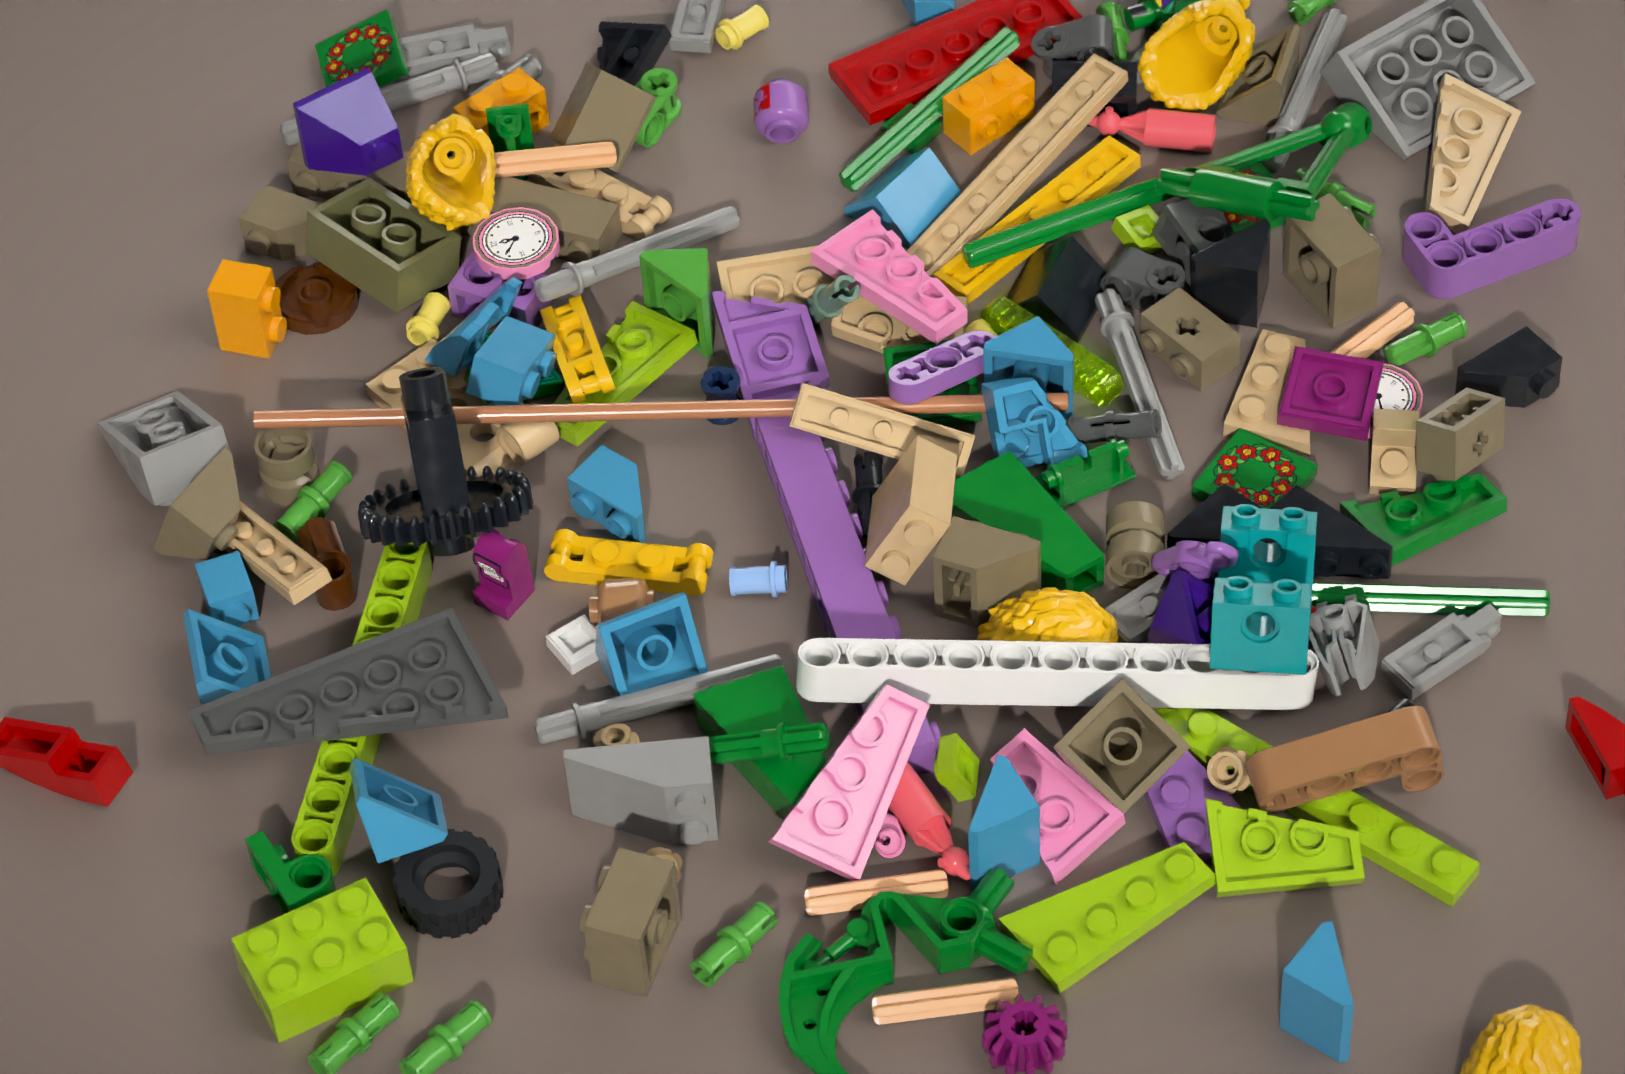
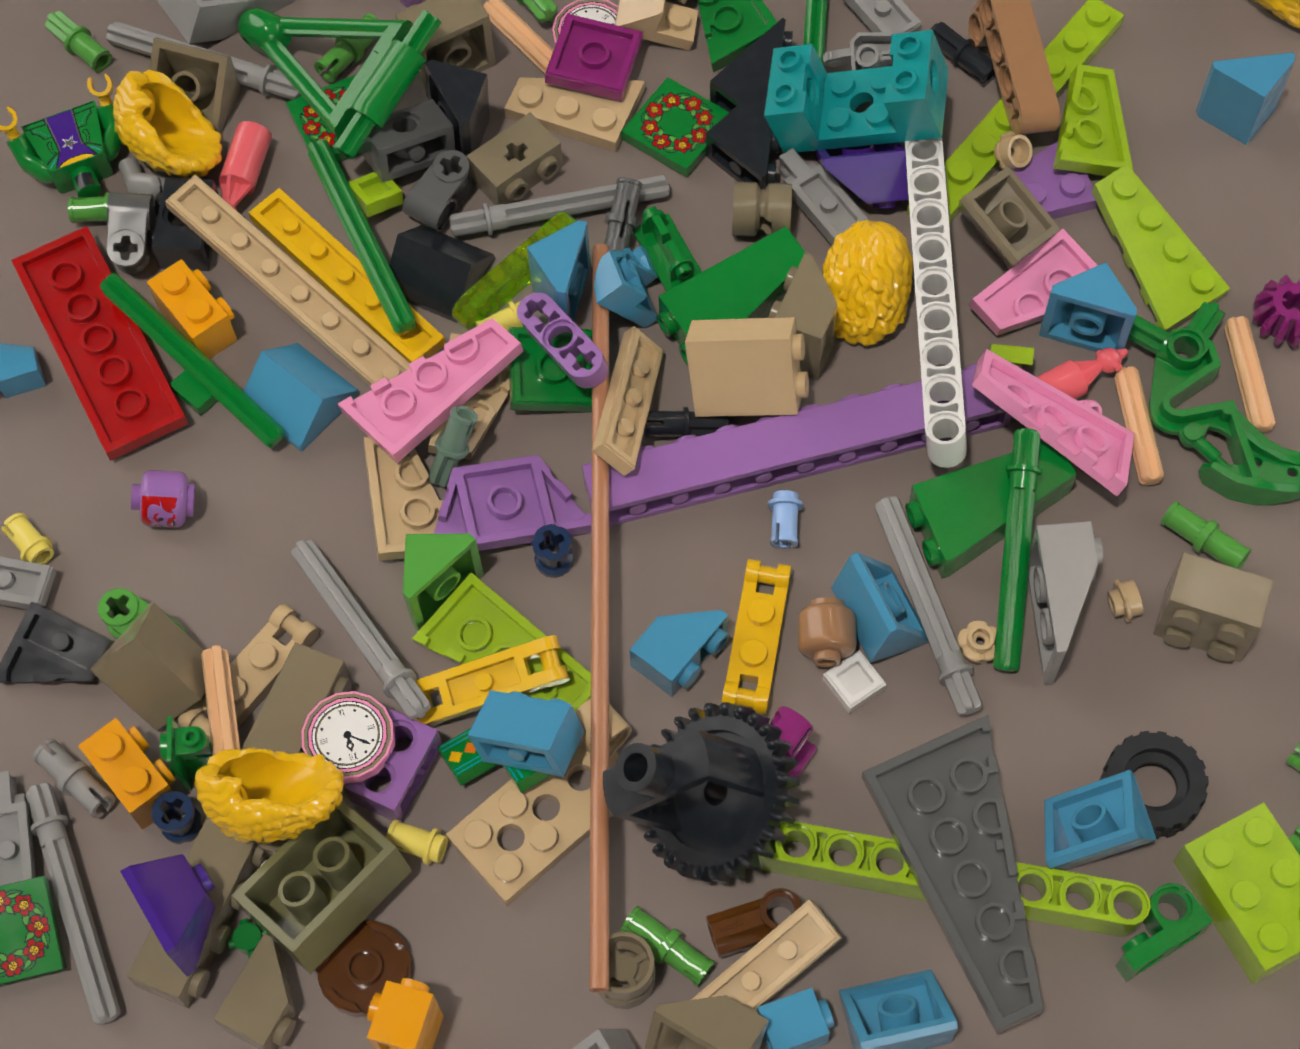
camera: 90 degrees left, 15 degrees up
(459, 346) = (463, 781): dark azure slope -> none
(1195, 558) = (816, 145): medium lavender piece -> none

